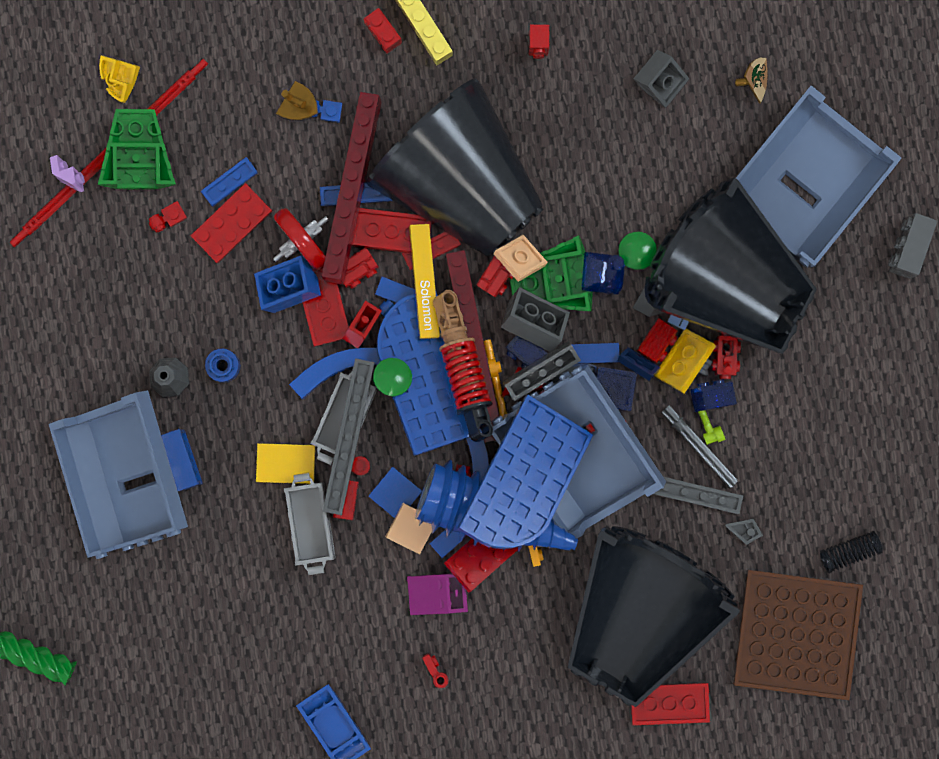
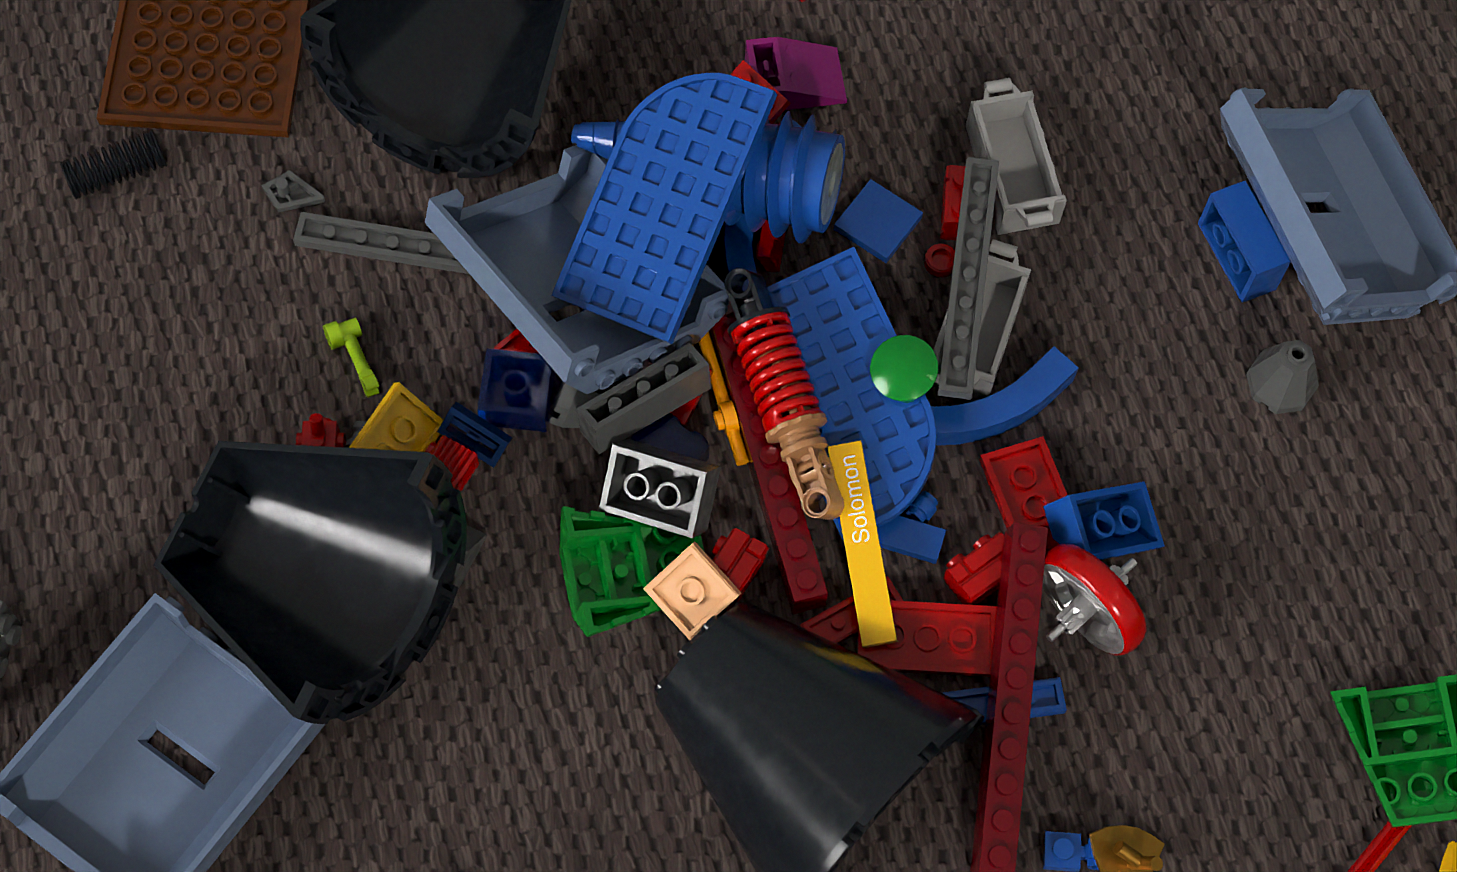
camera: 175 degrees right, 20 degrees down
(172, 214) = (1326, 648): red plate -> none
(212, 365) = (1185, 410): blue piece -> none
(229, 181) = (1231, 712): blue tile -> none
(231, 223) = (1216, 639): red plate -> none
(282, 461) = (1067, 256): yellow tile -> none
(361, 324) = (964, 468): red brick -> none
(406, 529) = (861, 169): light nougat tile -> none
(597, 352) = (554, 455): blue tile -> none
(603, 273) = (541, 582): clear blue slope -> none
(637, 250) = (479, 631): green dish -> none
(696, 443) = (405, 348): dark grey axle -> none
(713, 396) = (343, 385): clear blue brick -> none

